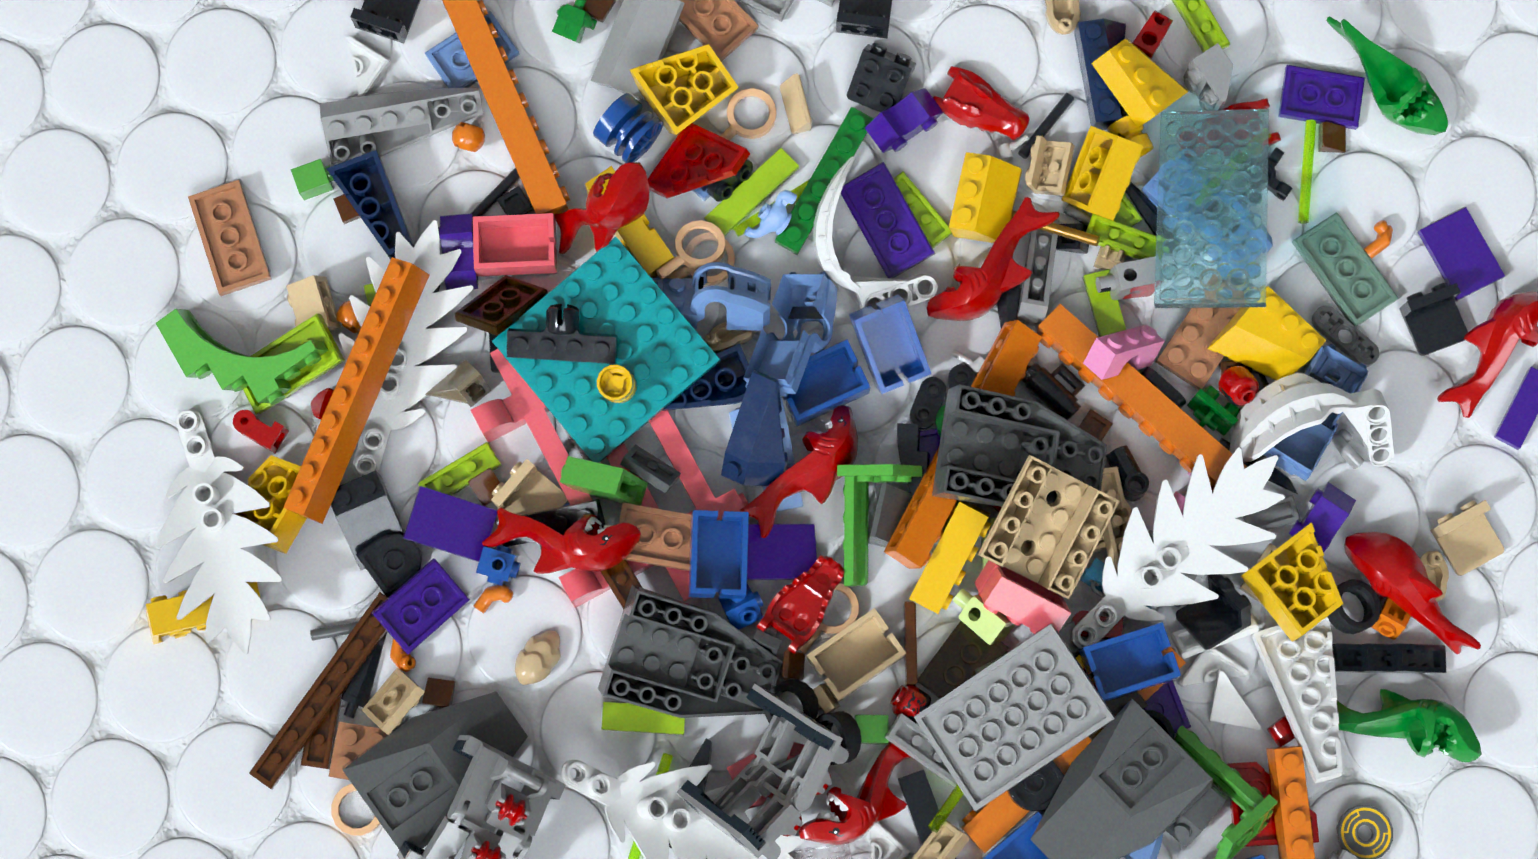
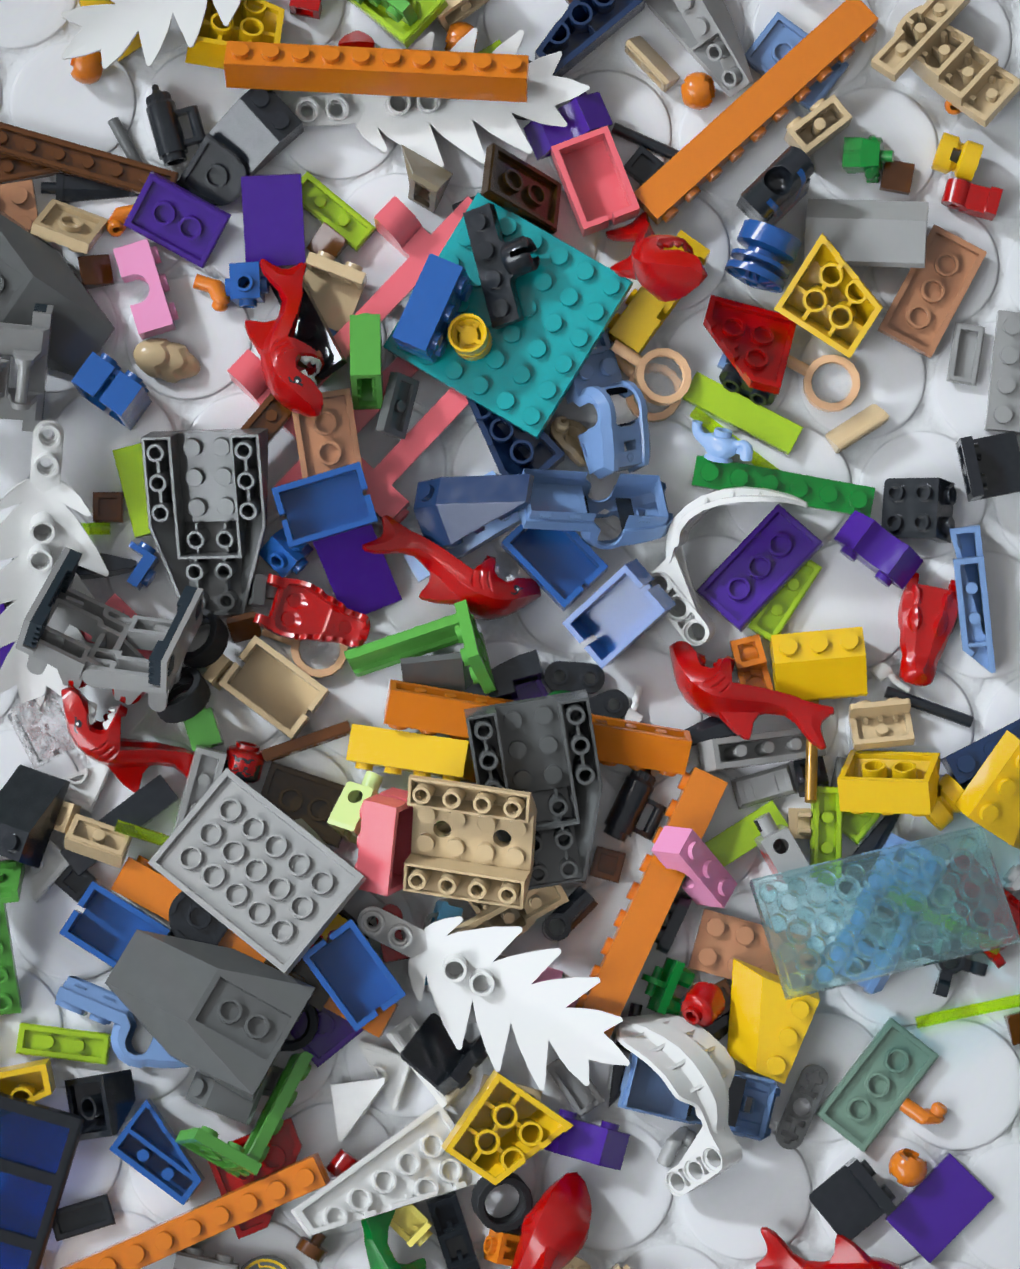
camera: 70 degrees right, 5 degrees up
(261, 641) = (87, 68): none -> orange piece
(337, 589) = (167, 127): none -> black piece
(430, 169) = (651, 63): none -> tan slope
(446, 651) = (153, 314): none -> bright pink arch
(535, 49) = (819, 126): none -> tan brick
(539, 715) = (107, 386): none -> blue piece
(574, 97) = (778, 187): none -> black piece
(582, 405) = (432, 308): none -> blue piece
(649, 749) = (108, 507): none -> reddish brown tile
(716, 735) = (144, 571): none -> blue bracket
(963, 253) = (751, 662): none -> orange slope
(967, 57) = (972, 595): none -> medium blue wedge
(1069, 279) = (763, 786): none -> light grey tile
(1345, 781) = (312, 1247): none -> reddish brown tile
(1353, 689) = (411, 1225): none -> light yellow bracket
(1422, 266) = (907, 1167): none -> orange piece

